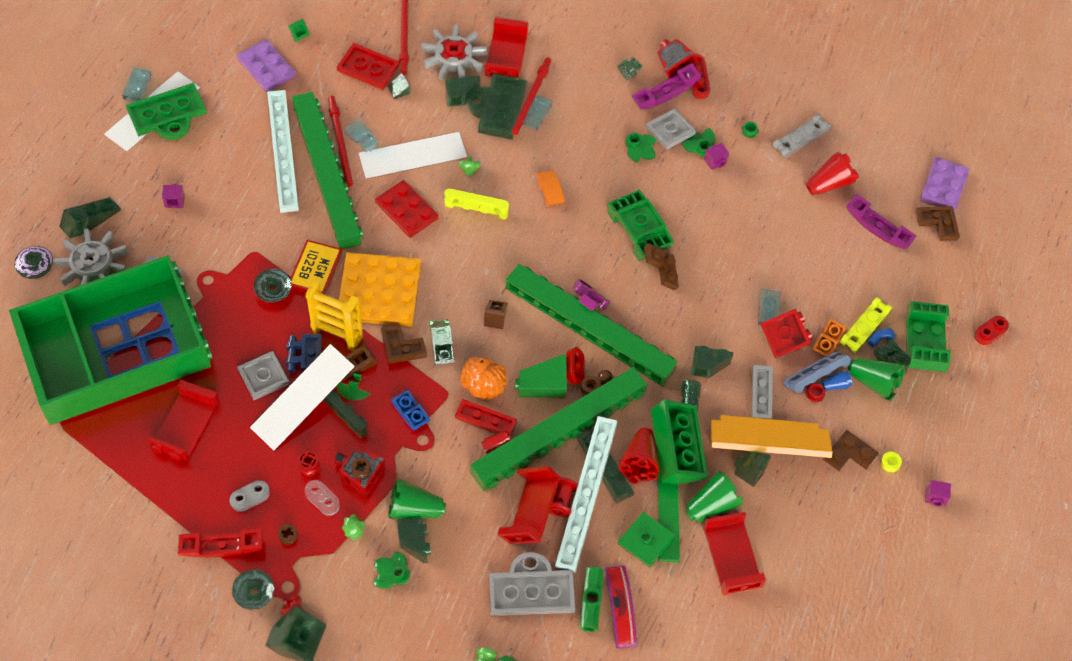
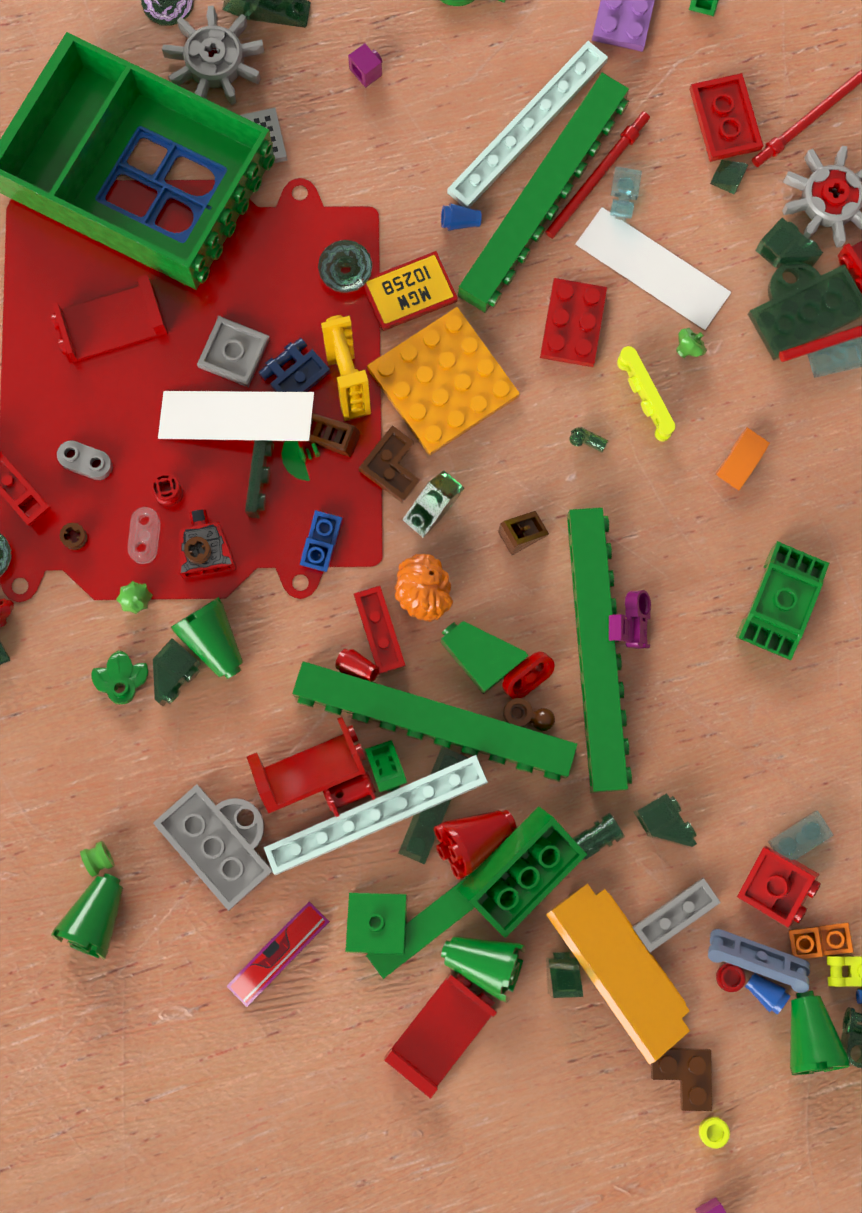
camera: 50 degrees right, 20 degrees up
(298, 217) = (459, 217): none -> blue cone
(472, 247) = (583, 436): none -> clear green arm
(567, 466) = (386, 766): none -> green tile
(591, 610) = (239, 928): green piece -> none
(665, 263) = (753, 674): reddish brown plate -> none

